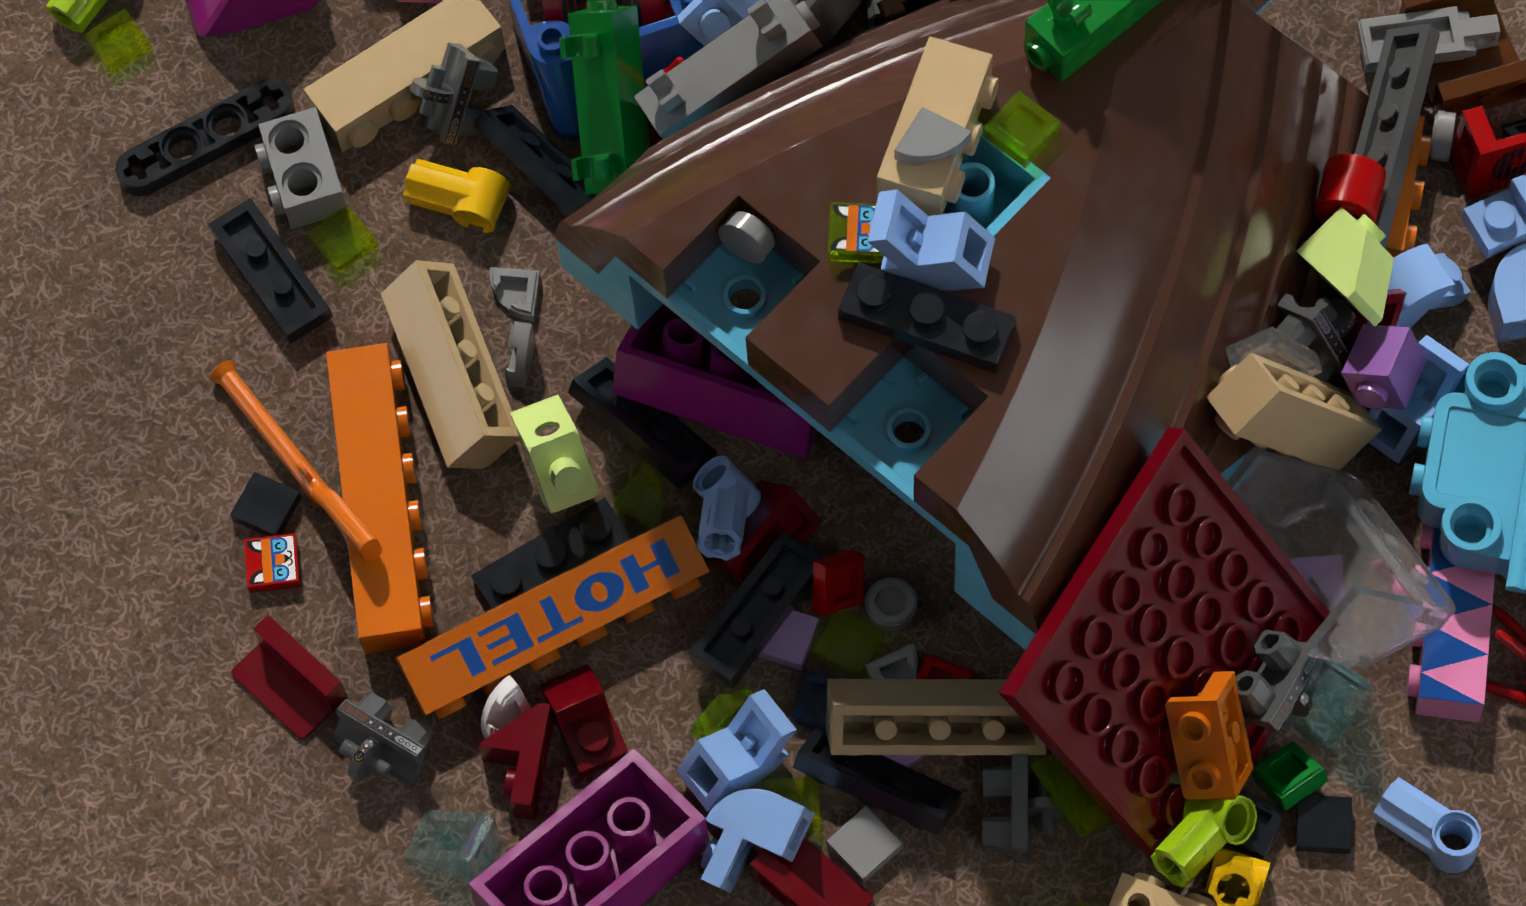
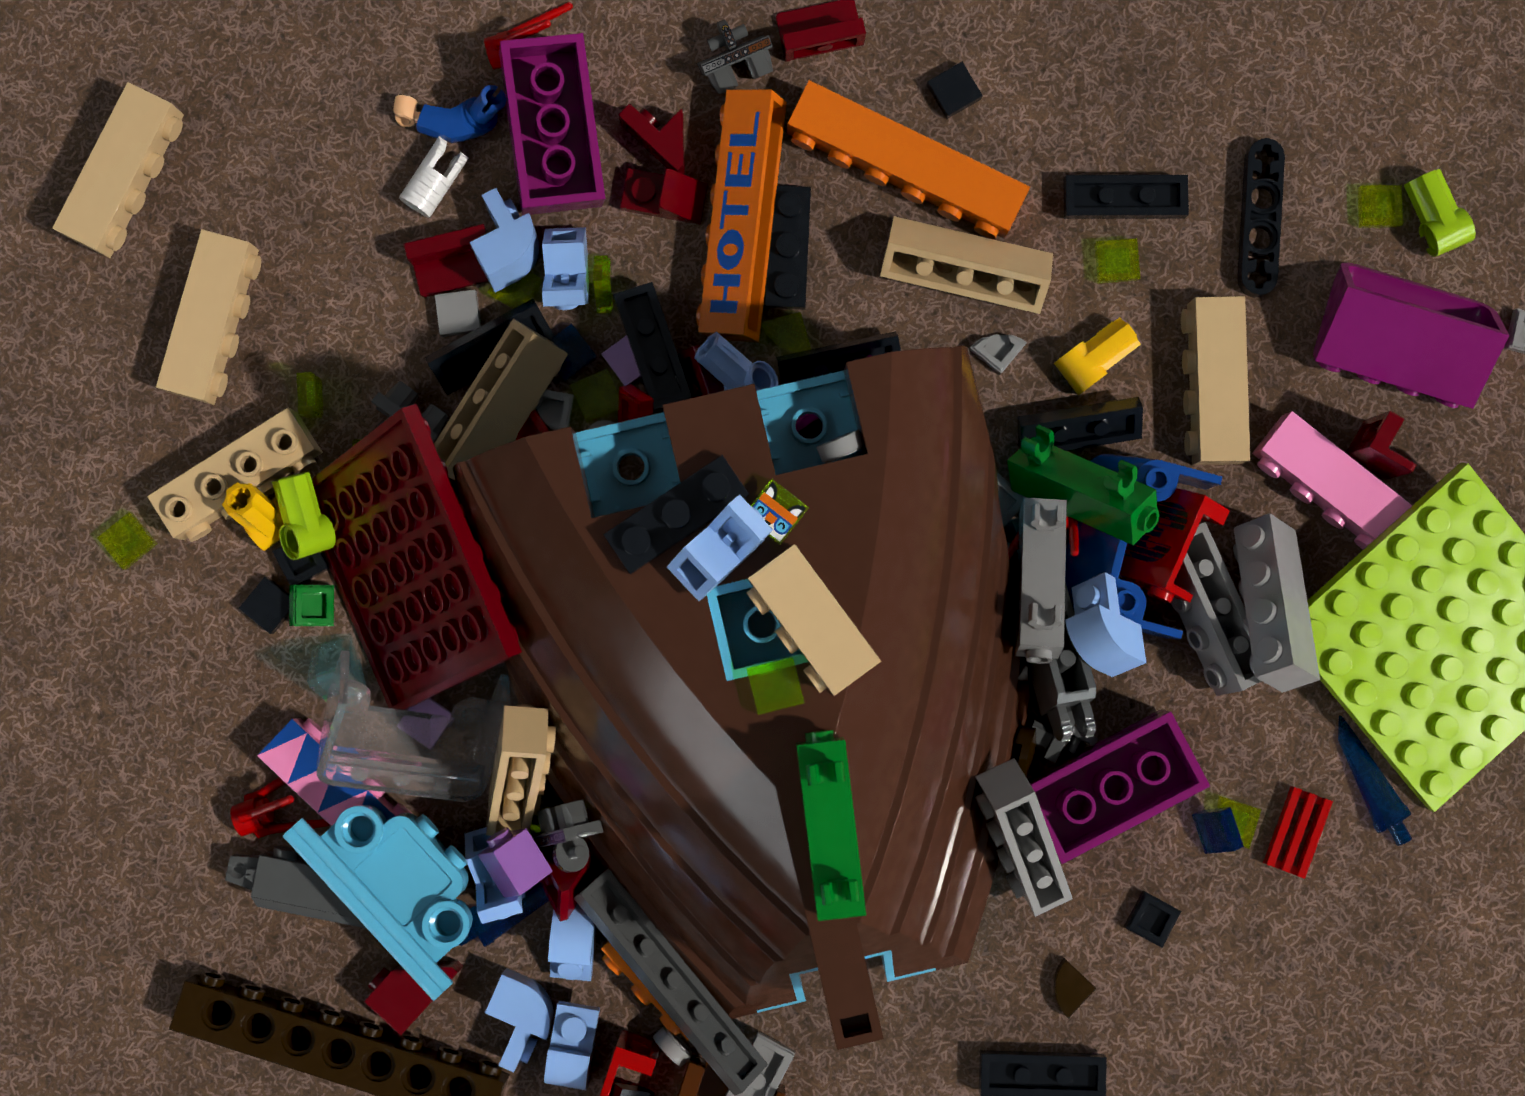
camera: 115 degrees right, 20 degrees up
(272, 563) = (910, 69): tile -> none
(306, 168) = (1186, 274): light grey brick -> none
(310, 481) = (944, 126): orange piece -> none
(448, 93) = (1174, 393): dark grey hips -> none
(455, 843) = (633, 59): clear light blue slope -> none
(503, 706) = (699, 148): white tile -> none
(523, 344) = (950, 322): light grey tile -> none
(555, 459) = (826, 282): yellowish green torso -> none
(931, 139) = (792, 599): light grey tile -> none
(1210, 740) = (340, 558): orange bracket -> none
(1278, 348) = (552, 780): clear tile -> none
(1278, 684) = (359, 631): dark grey hips -> none
(1350, 183) = (648, 933): red piece -> none
(1352, 261) = (591, 891): yellowish green slope -> none
(1424, 822) = (218, 665): light blue piece -> none

